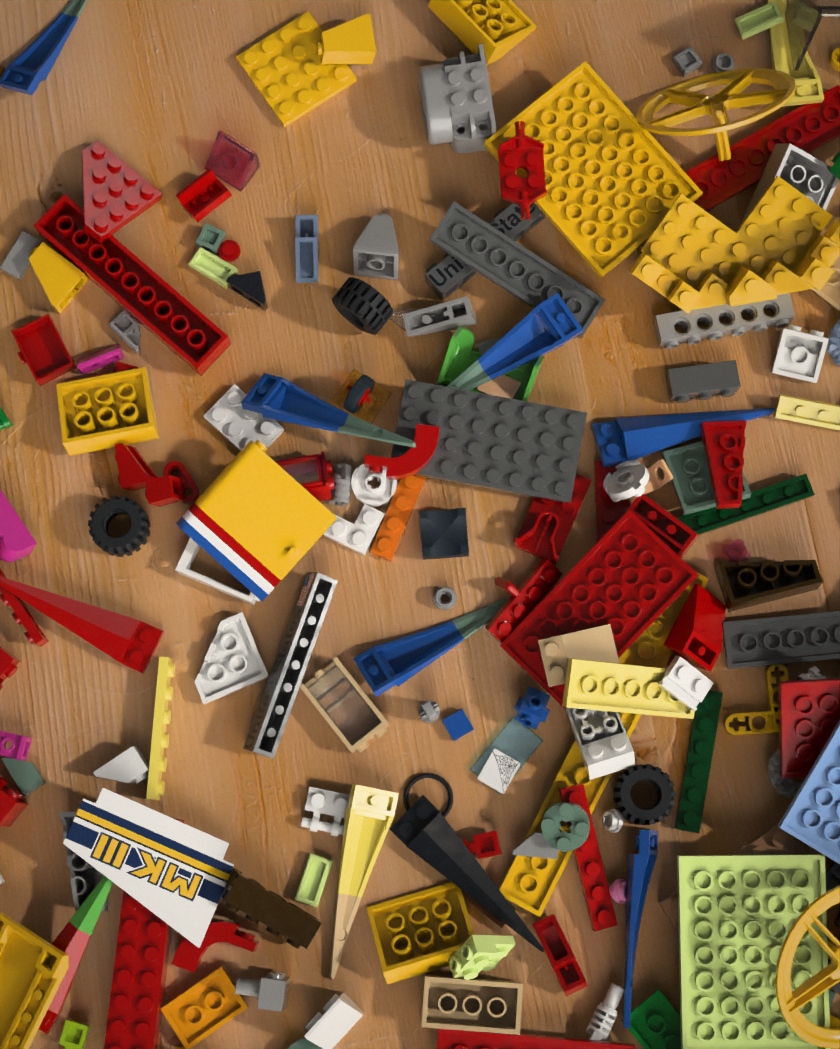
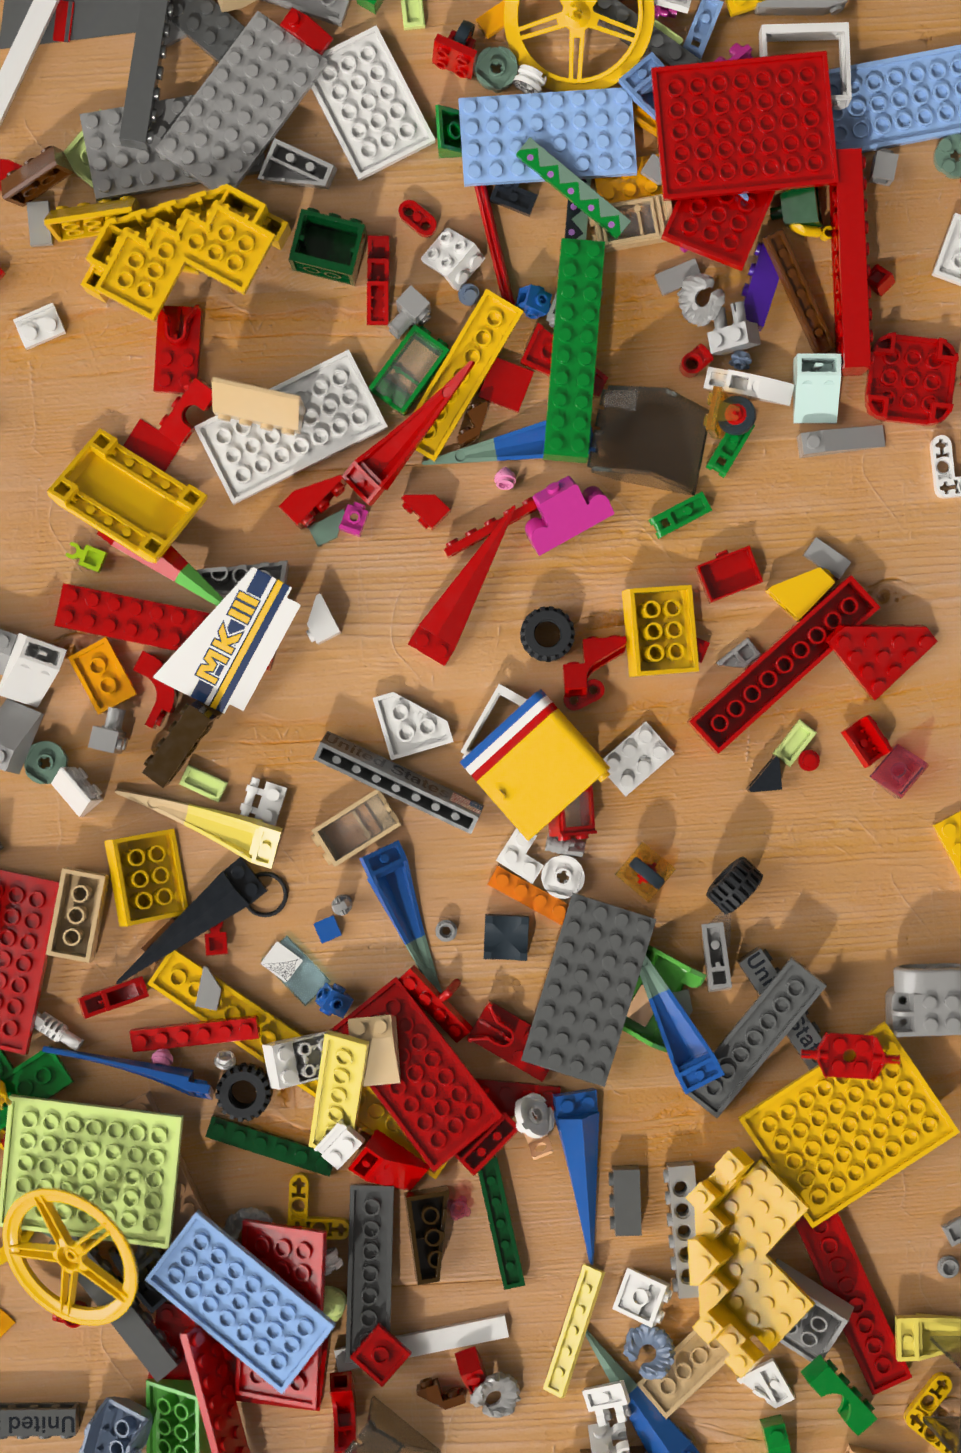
camera: 85 degrees right, 10 degrees up
(100, 359) = (715, 627): dark pink slope -> none
(160, 739) = (345, 656): light yellow plate -> none
(210, 238) = (823, 744): sand green plate -> none
(286, 402) = (646, 805): blue plate -> none
(307, 248) = (802, 836): sand blue slope -> none
(377, 250) = (792, 906): light grey slope -> none
(413, 460) = (580, 926): red arch -> none
(479, 954) = (118, 927): yellowish green plate -> none
(579, 828) = (209, 1016): sand green plate -> none
(692, 478) = (534, 1191): sand green plate -> none
(716, 104) = (896, 1255): yellow wheel -> none
(724, 454) = (544, 1211): red wing -> none

